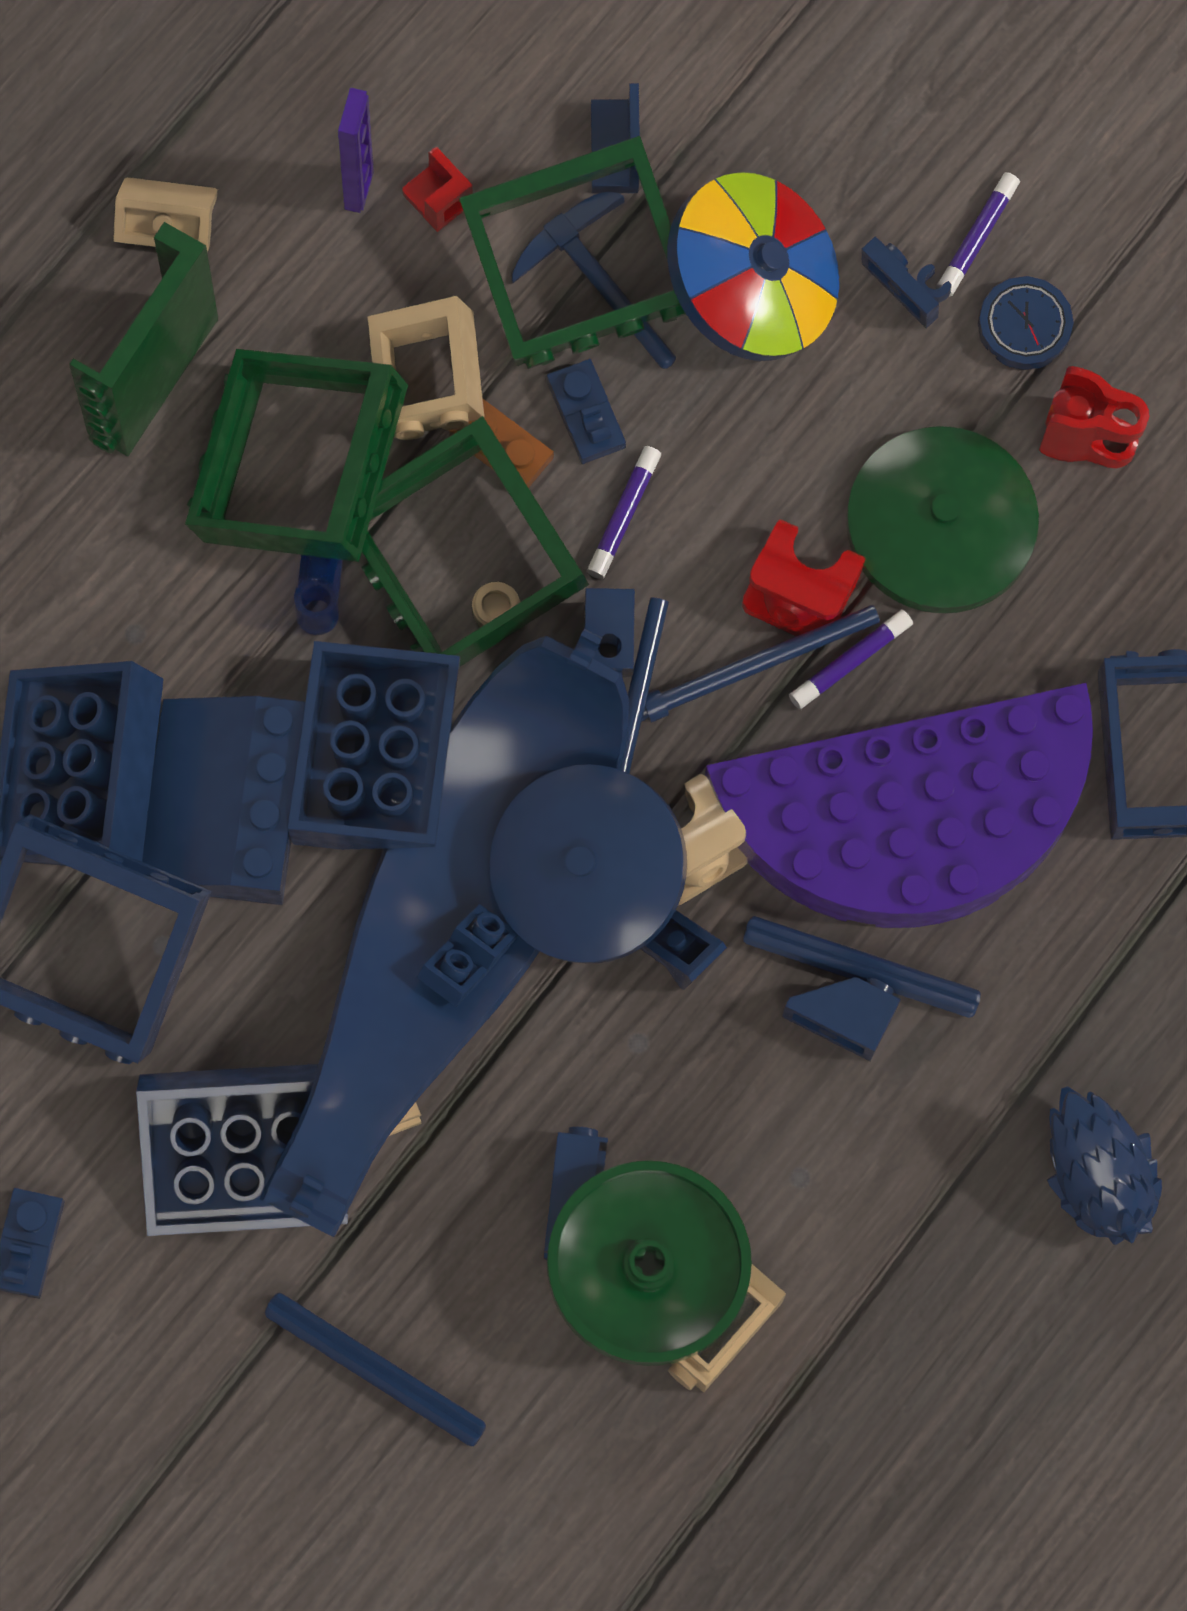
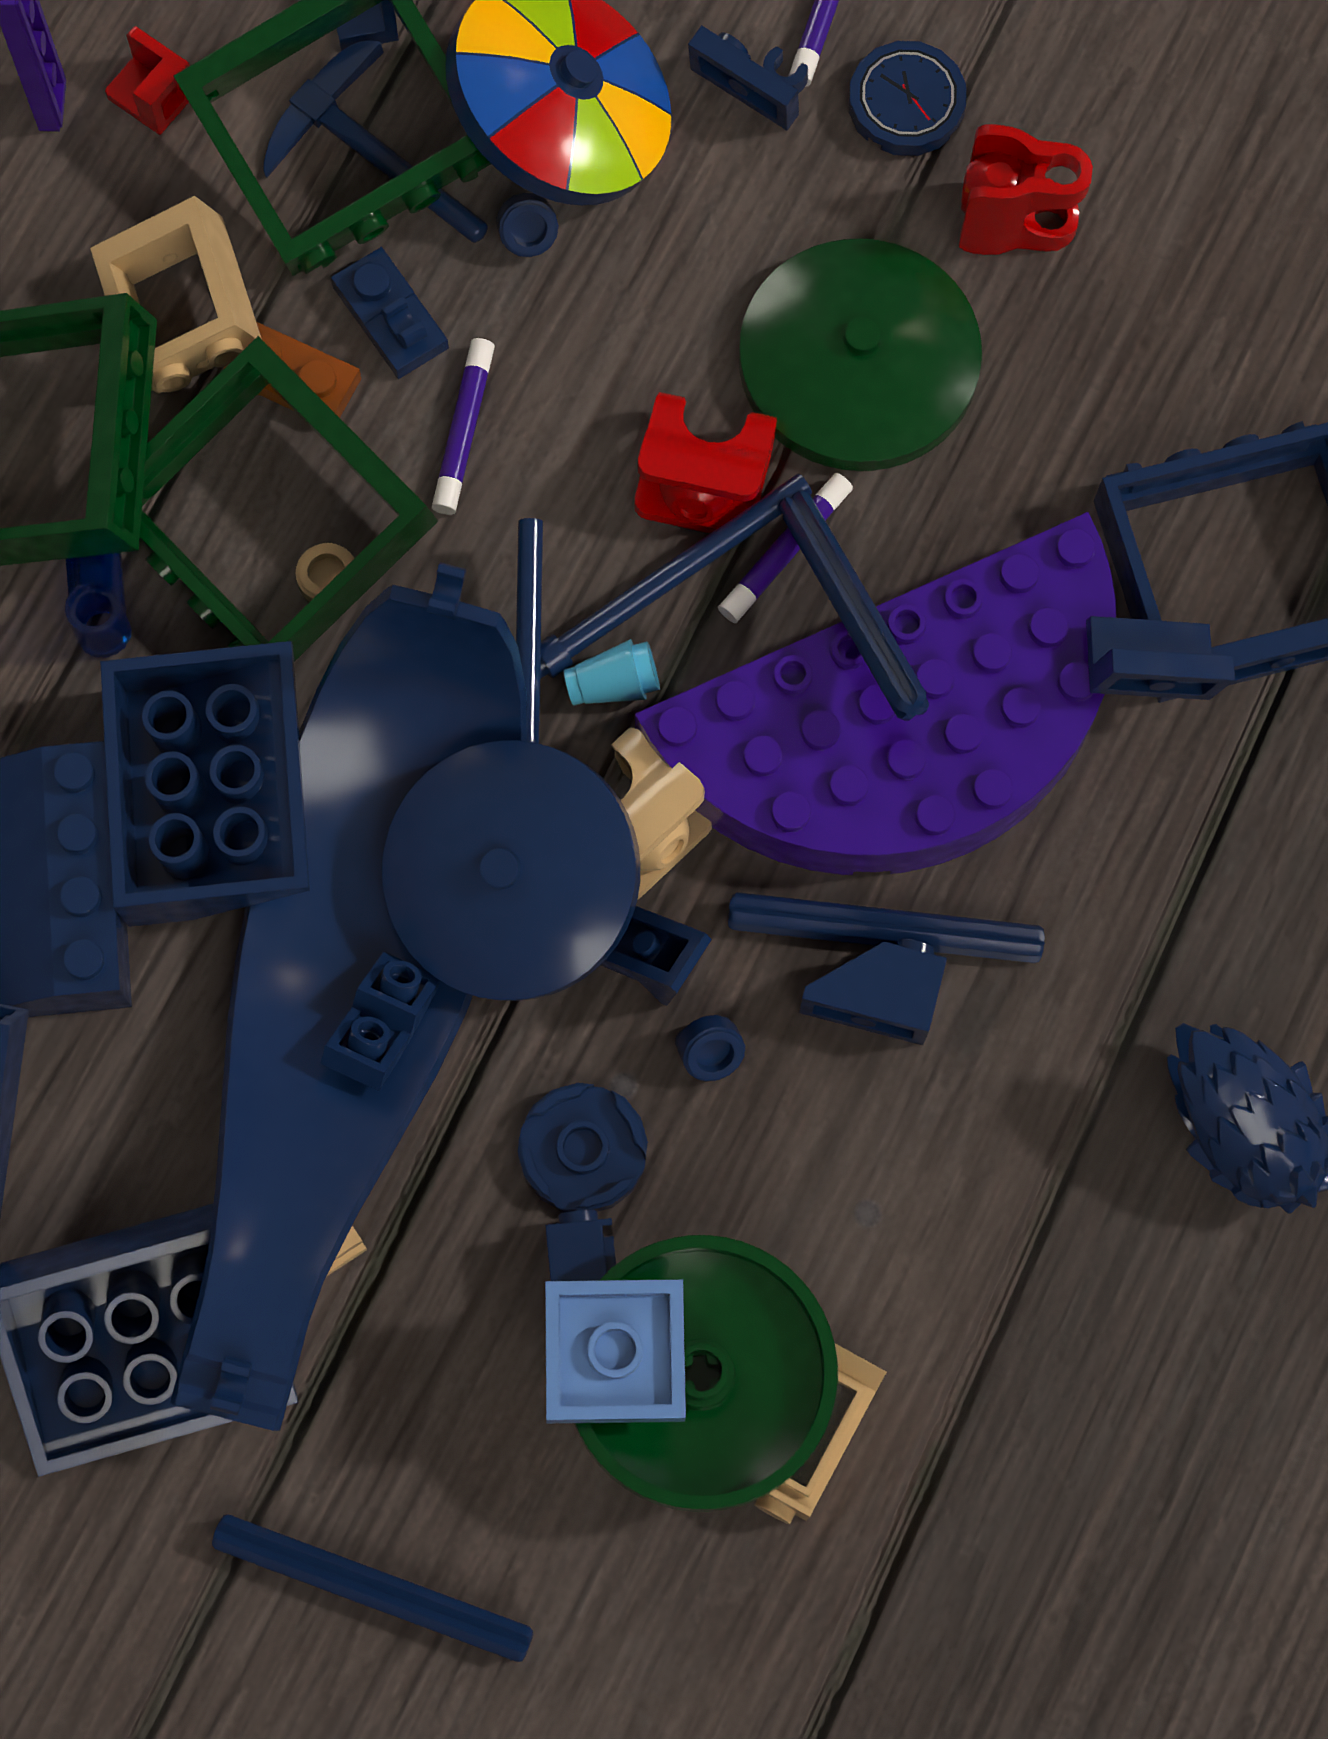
camera: 10 degrees left, 0 degrees up
(589, 1232) = (615, 1351): none -> medium blue plate
(597, 1082) = (582, 1148): none -> dark blue tile
(611, 616) = (477, 546): dark blue torso -> none
(697, 731) = (614, 675): none -> medium azure cone
(706, 365) = (527, 224): none -> dark blue tile
(709, 1028) = (710, 1047): none -> dark blue tile
(889, 717) = (854, 606): none -> dark blue axle
(1108, 806) = (1155, 659): none -> dark blue panel

